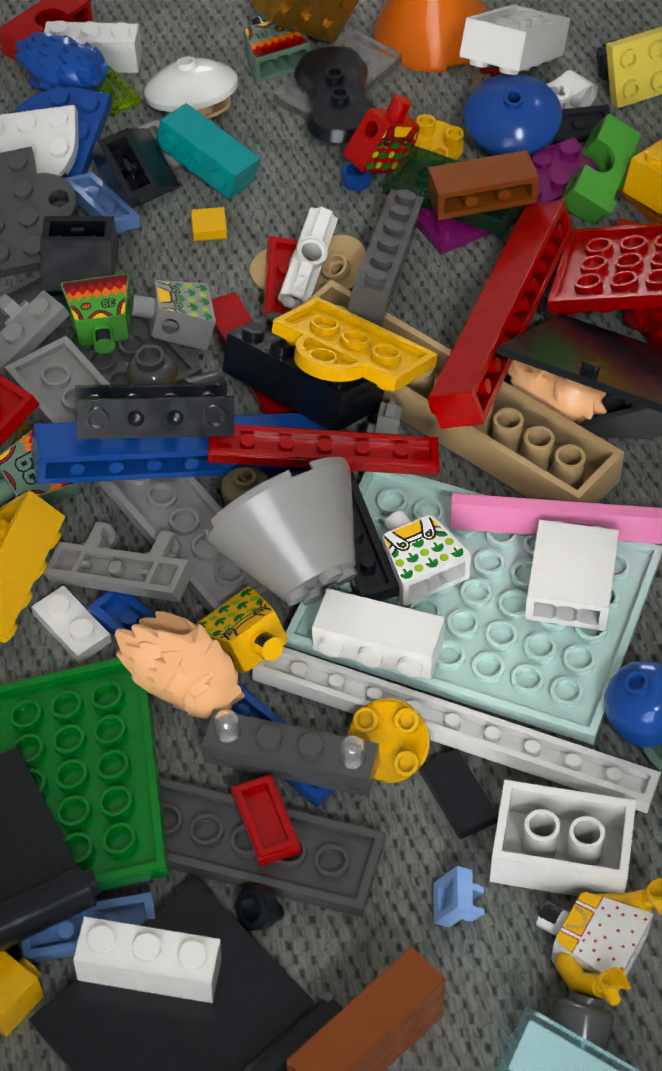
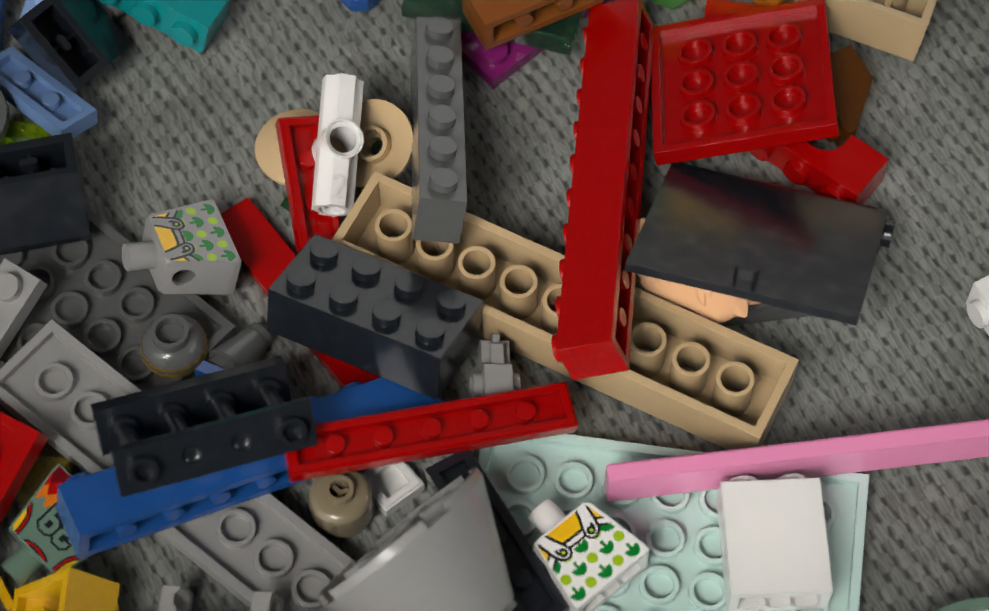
camera: 15 degrees left, 10 degrees up
(99, 310) = (83, 270): torso -> none
(209, 224) = (185, 97): yellow tile -> none
(346, 347) = (433, 284): yellow plate -> none

